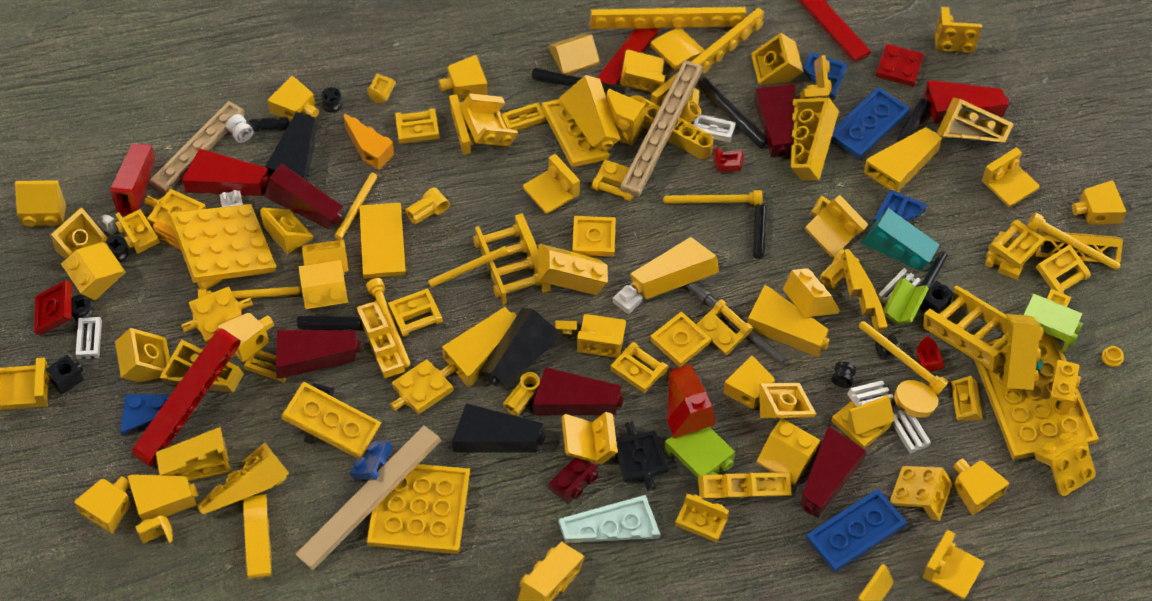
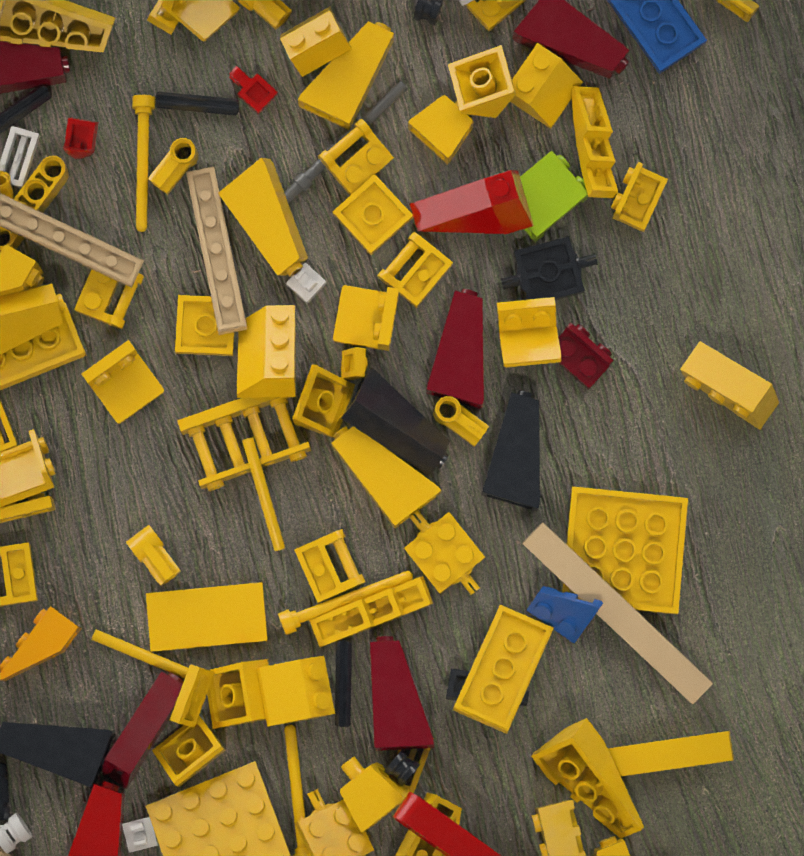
camera: 90 degrees left, 25 degrees up
(262, 352) = (402, 767): none -> black wheel
(324, 221) = (192, 696): none -> yellow tile
(540, 297) = (322, 402): none -> yellow slope
(617, 521) = (642, 302): light aqua wing -> none
(646, 240) = (216, 251): none -> tan tile
(716, 217) = (172, 168): none -> yellow piece
(771, 264) = (254, 91): none -> red plate

